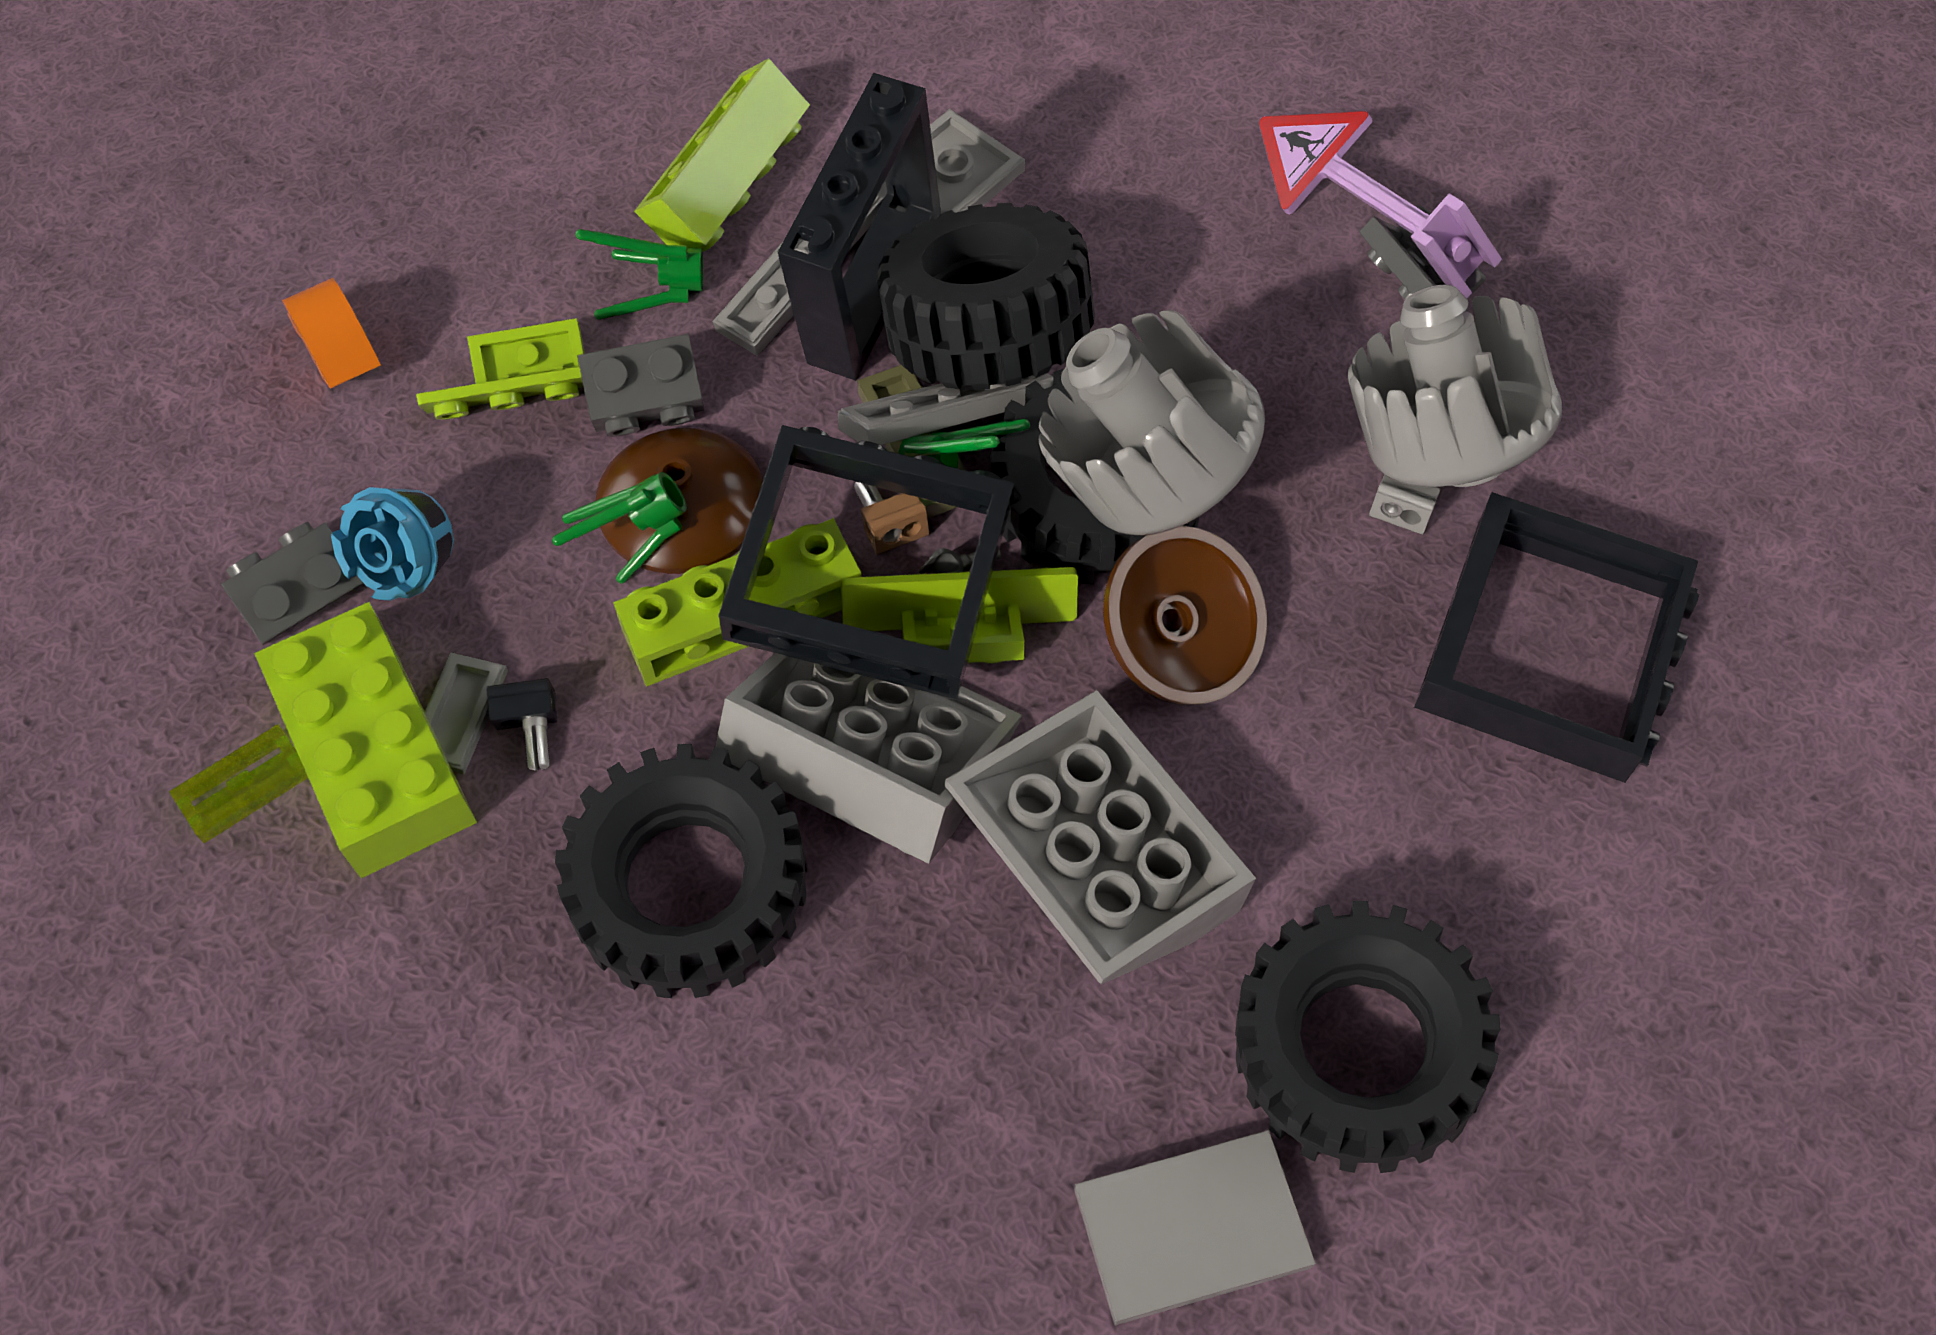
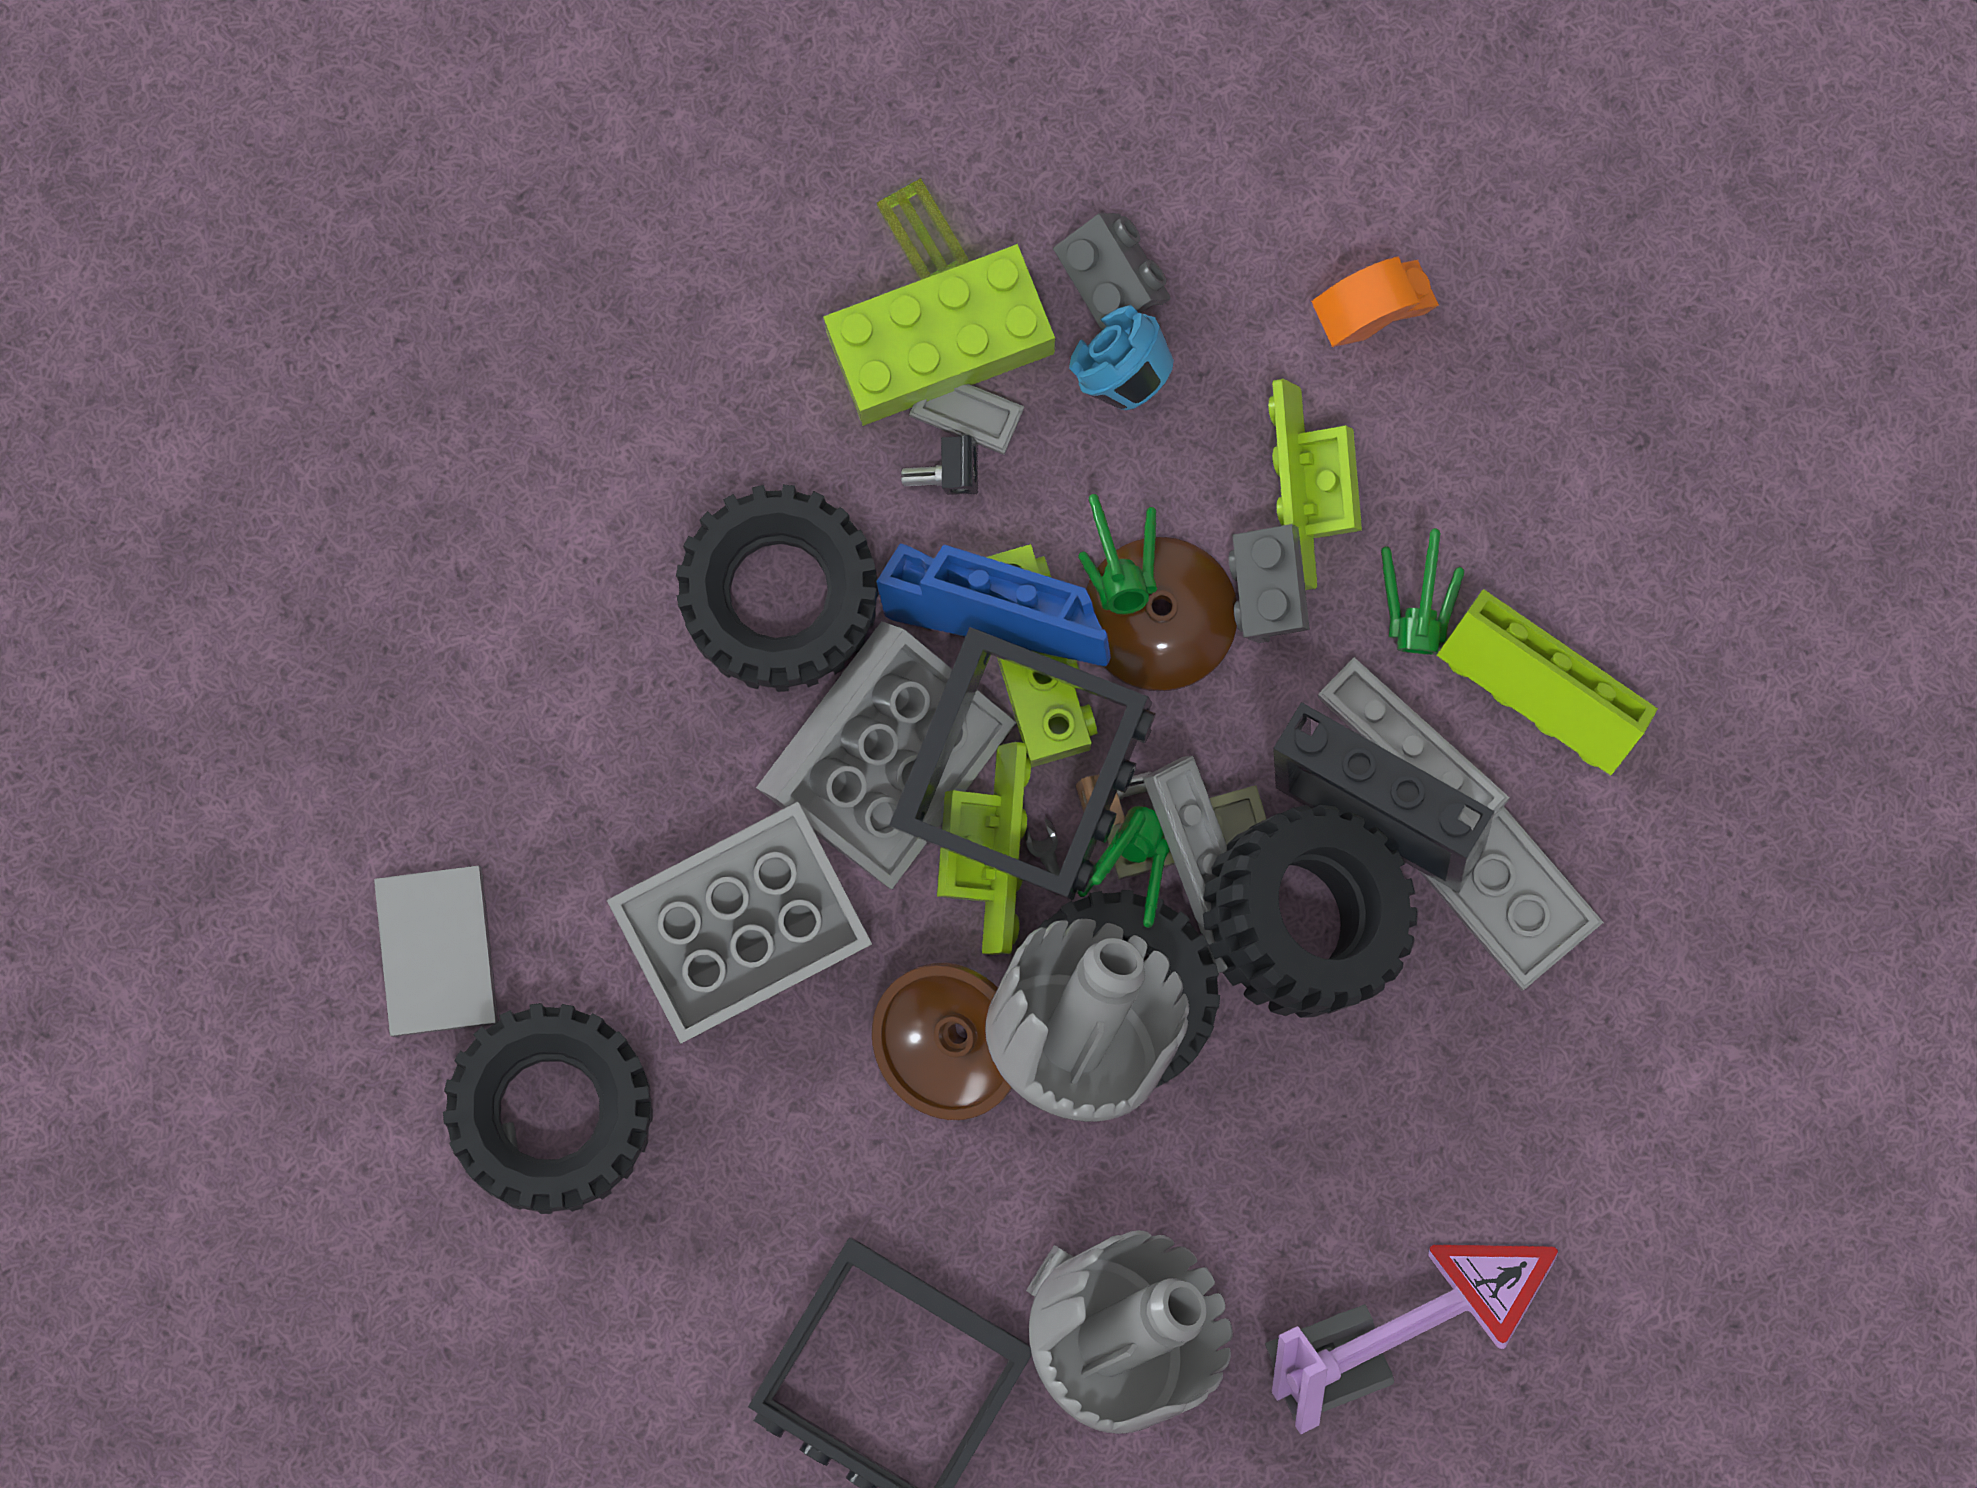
camera: 100 degrees right, 20 degrees up
(677, 634) = (992, 597): none -> blue wedge

